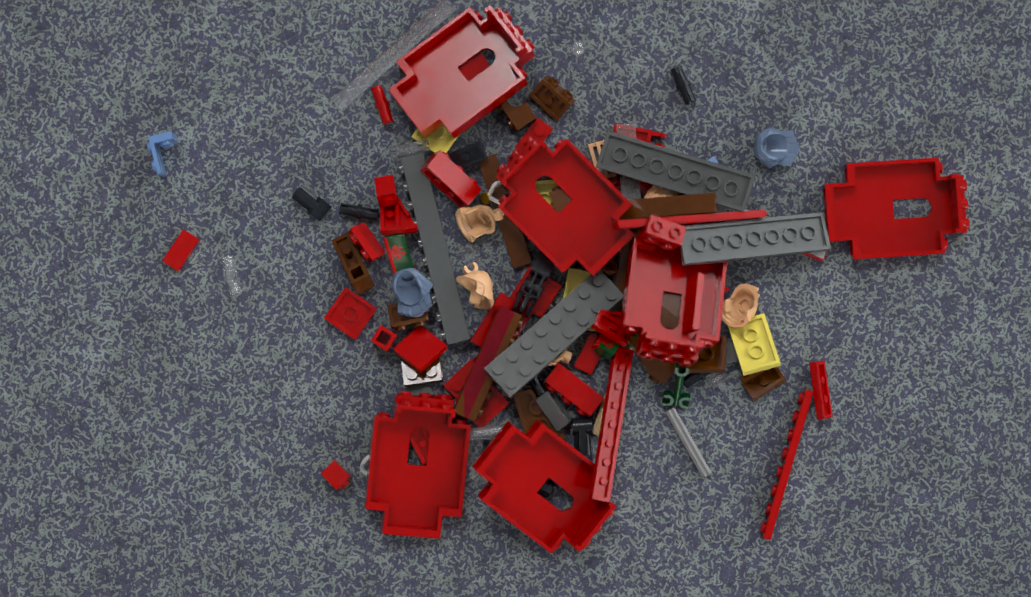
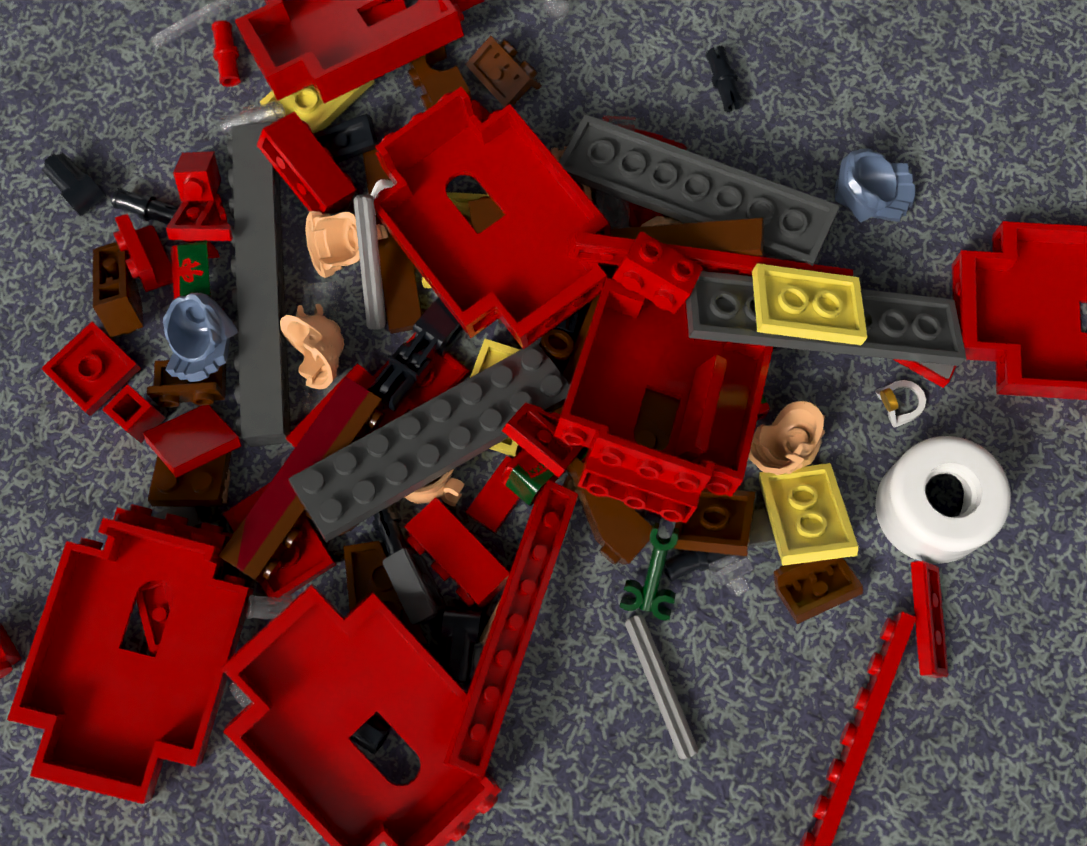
camera: 20 degrees right, 15 degrees down
(500, 236) = (369, 261): none -> light grey axle
(743, 237) = (808, 304): none -> light yellow plate
(792, 277) = (890, 402): none -> white piece
(803, 334) = (922, 531): none -> white piece

